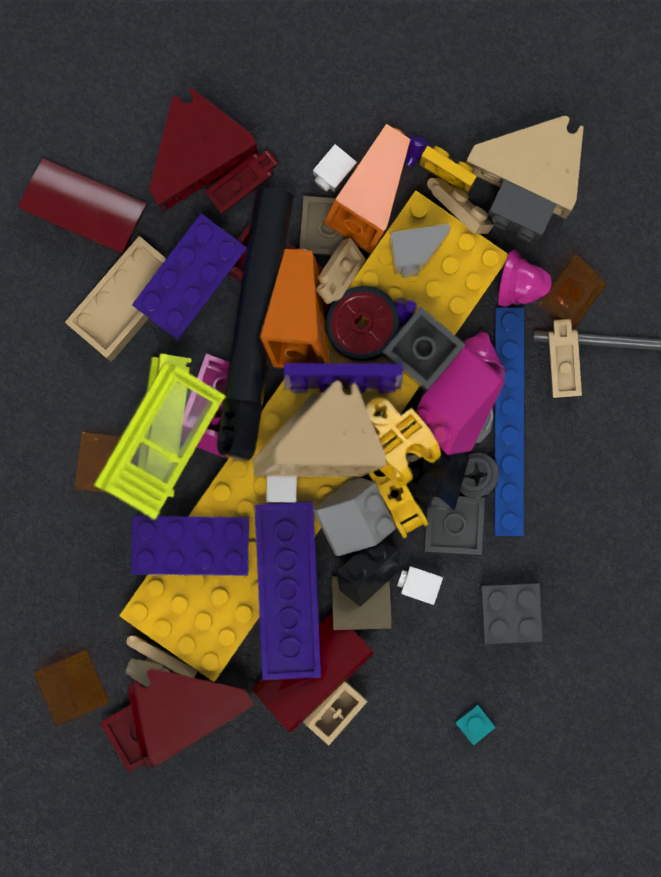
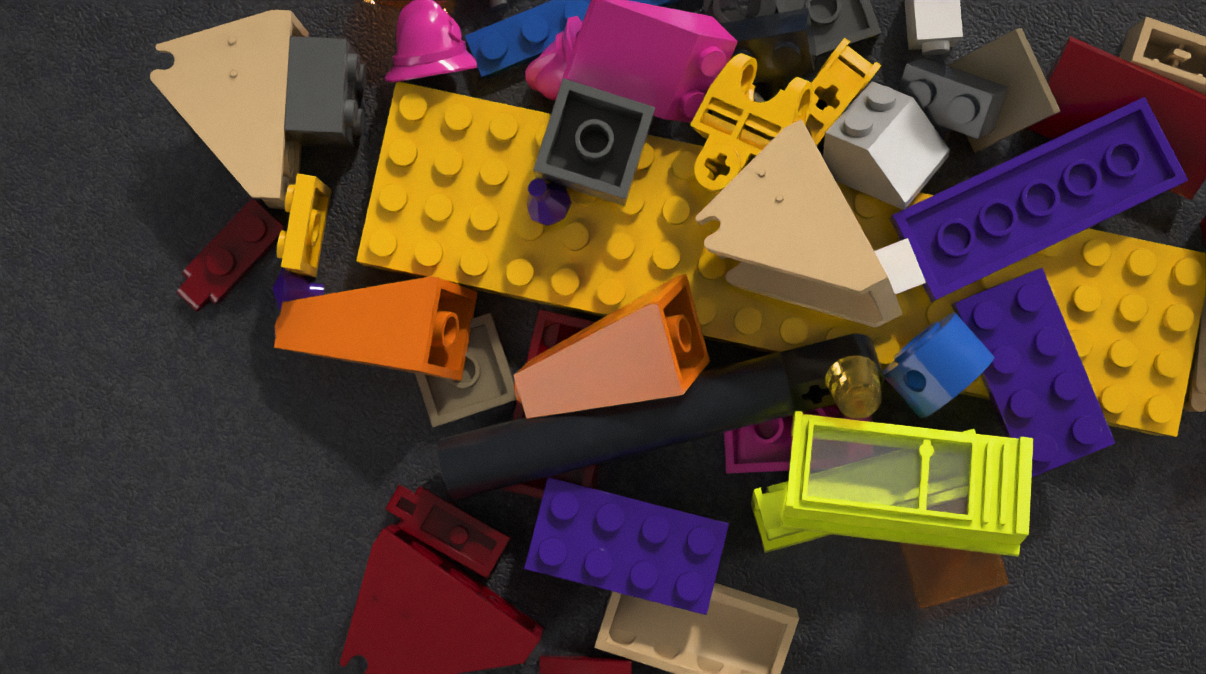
camera: 110 degrees left, 0 degrees up
(218, 488) = (937, 365): none -> blue piece
(225, 434) = (855, 386): none -> clear yellow hat
(334, 169) = (374, 398): white brick -> none
(340, 271) = (526, 322): tan hinge -> none
(351, 308) = (576, 282): dark red wheel -> none
(365, 376) = (681, 226): dark purple plate -> none
(415, 248) = (446, 215): light grey slope -> none
(451, 120) = (230, 256): none -> dark red hinge
(457, 202) = (349, 193): tan hinge -> none

